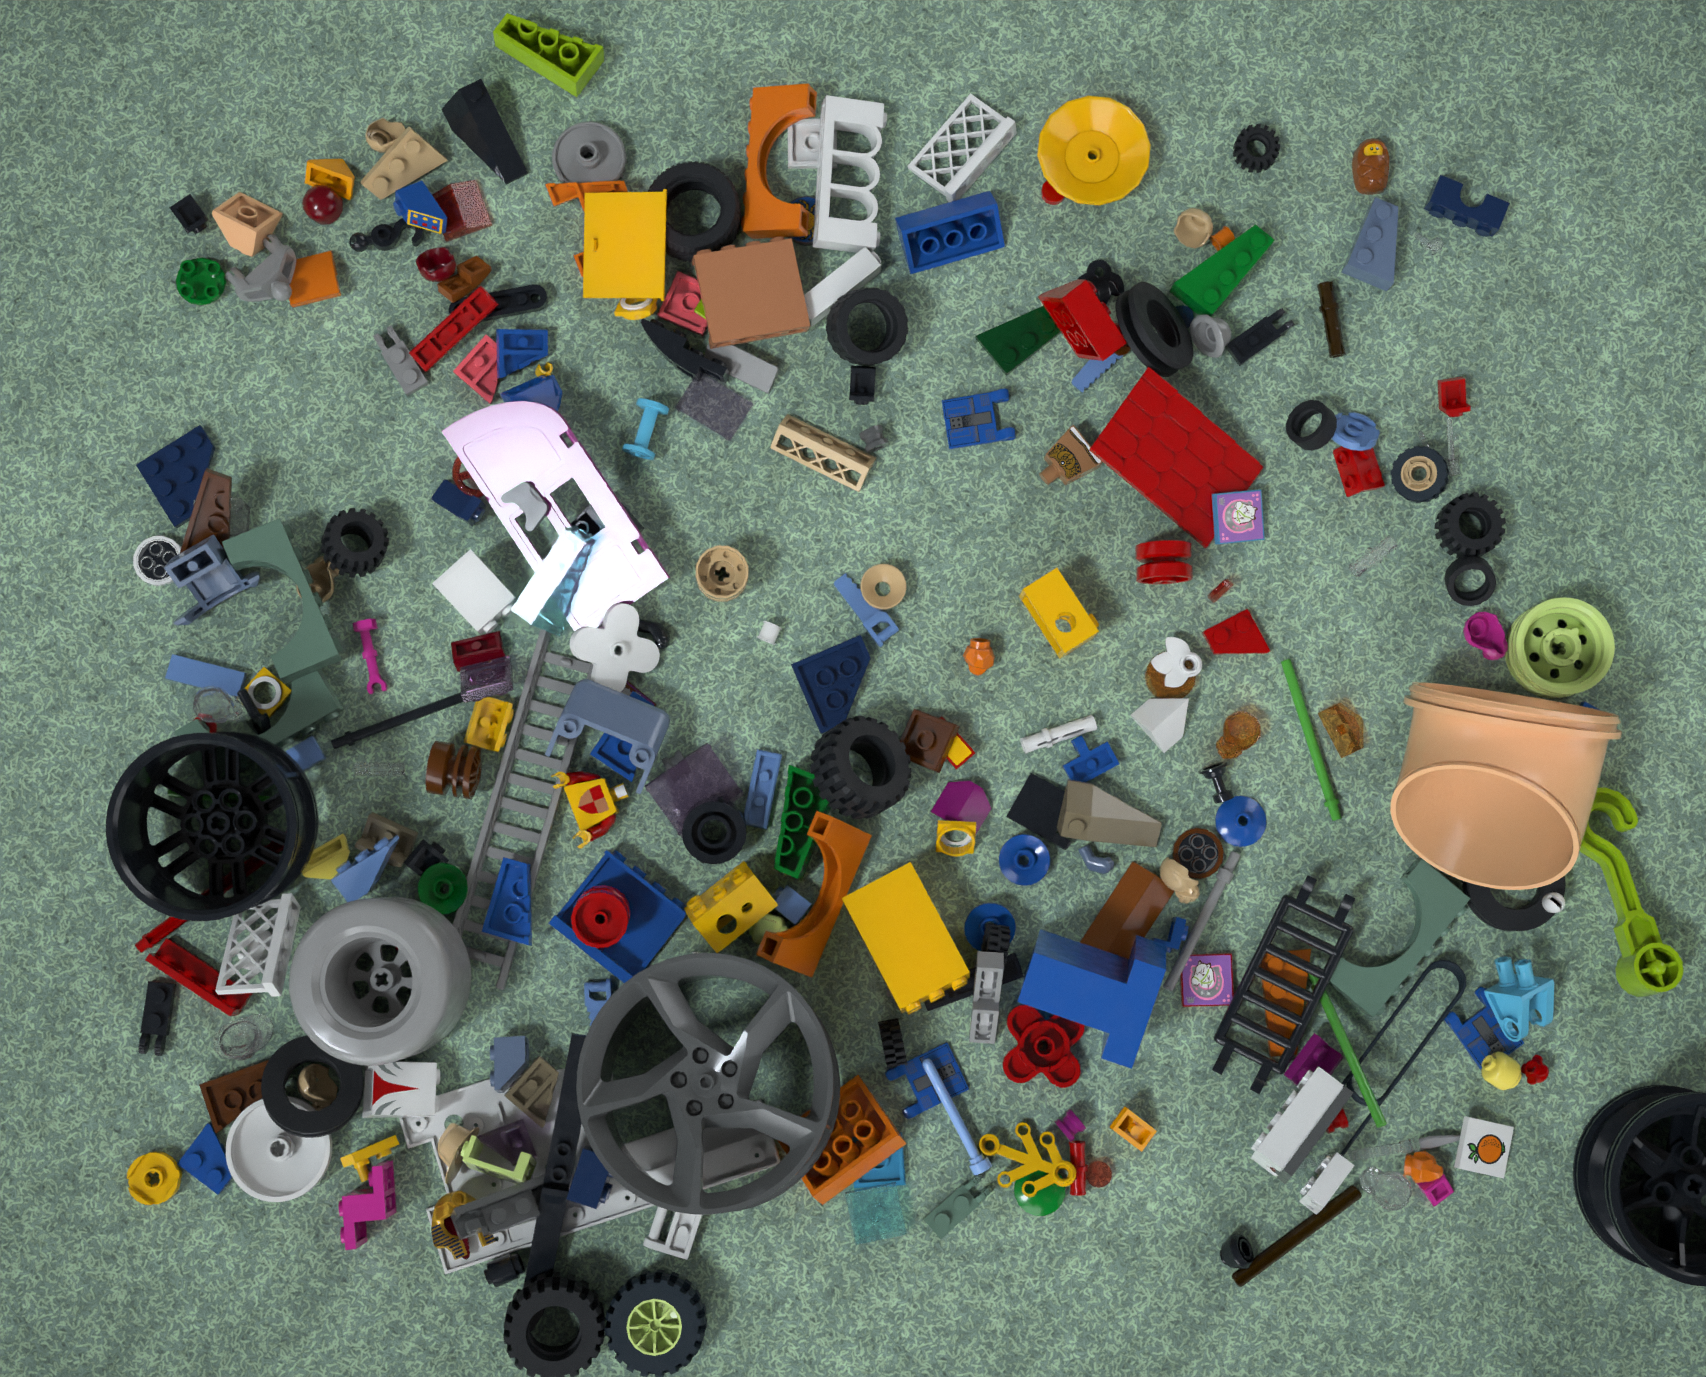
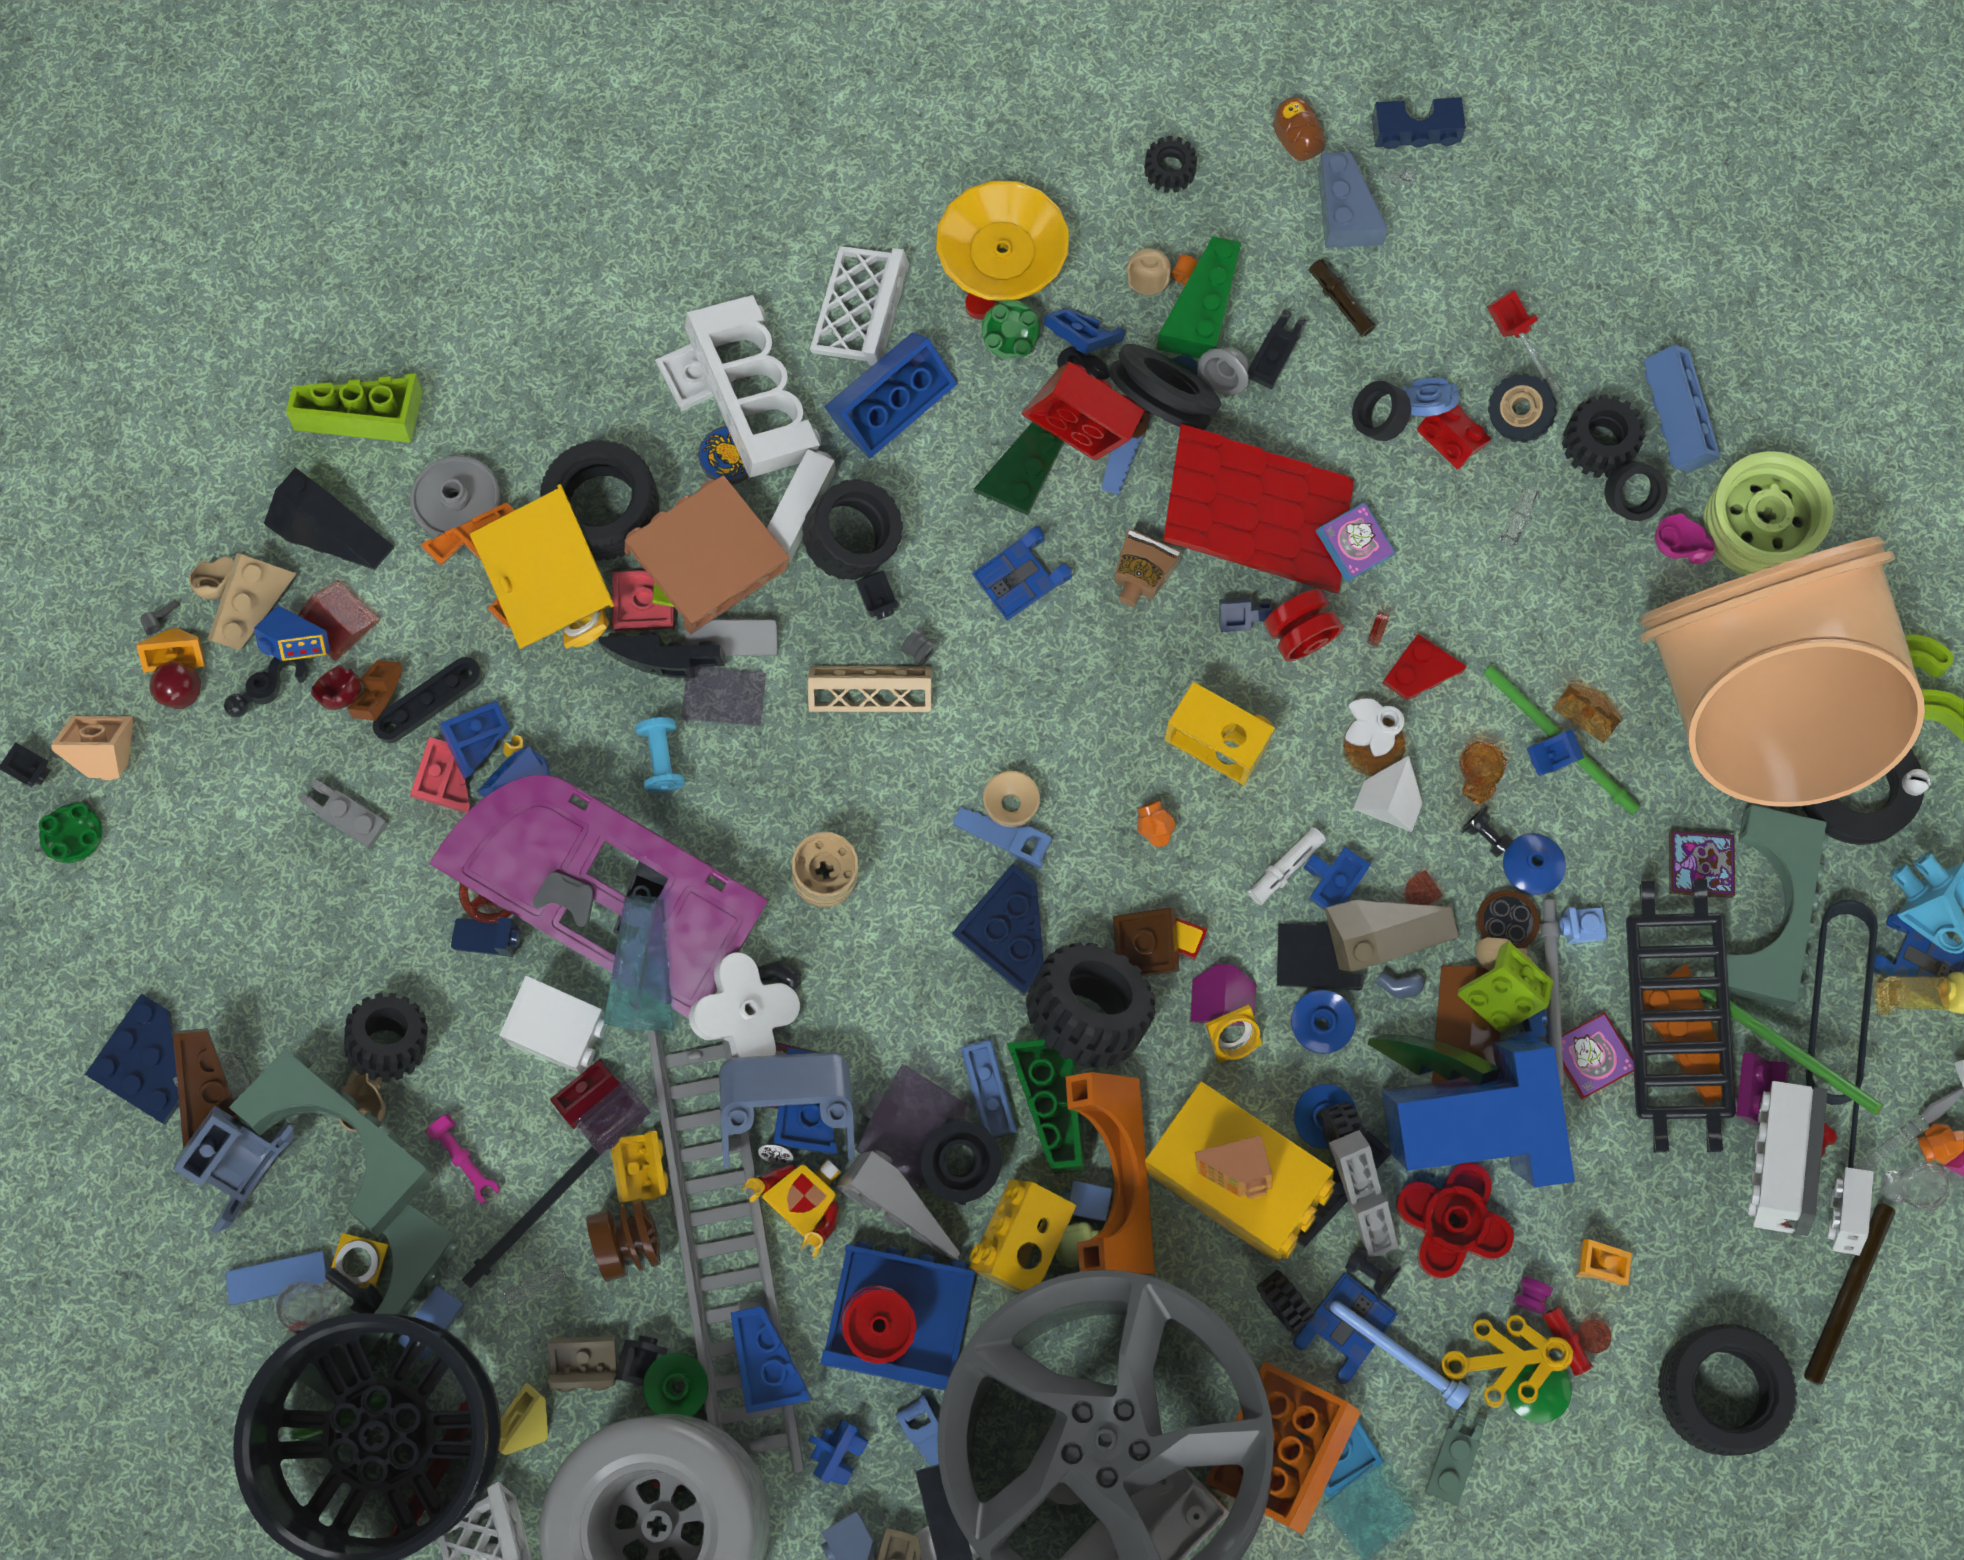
camera: 25 degrees left, 10 degrees down
(152, 557) = (153, 1174): tile -> none
(269, 278) = (150, 791): light grey connector -> none
(314, 279) = (199, 771): orange slope -> none
(326, 145) = (150, 619): none -> dark grey hand
(363, 874) = (575, 1411): medium blue slope -> none
(453, 328) = (389, 748): red plate -> none
(529, 984) = (830, 1455): none -> blue hips
(589, 761) = (775, 1154): none -> white sticker
(651, 824) = (882, 1187): none -> light grey wedge
(769, 632) = (909, 911): white axle -> none
(772, 113) = (636, 359): orange arch -> none
(902, 938) = (1237, 1167): none -> nougat slope
(970, 1061) = (1383, 1279): none -> black piece
(1065, 223) = (1010, 329): none -> green dish
(1083, 922) = (1427, 1055): none -> dark green slope
(1119, 251) = (1082, 330): none -> blue wing
(1122, 528) = (1238, 613): none -> dark blue plate
(1147, 800) = (1421, 890): none -> clear red tile
(1169, 906) = (1509, 991): none -> lime bracket
(1203, 1277) = (1771, 1372): none -> black tyre
(1237, 1252) = (1797, 1344): black cone -> none
(1251, 883) = (1583, 925): none -> light blue bracket
(1299, 748) = (1555, 753): none -> blue bracket
(1364, 880) = (1702, 857): none -> tile
(1460, 1050) = (1911, 993): none -> clear yellow bracket
(1541, 533) = (1681, 409): none -> medium blue brick

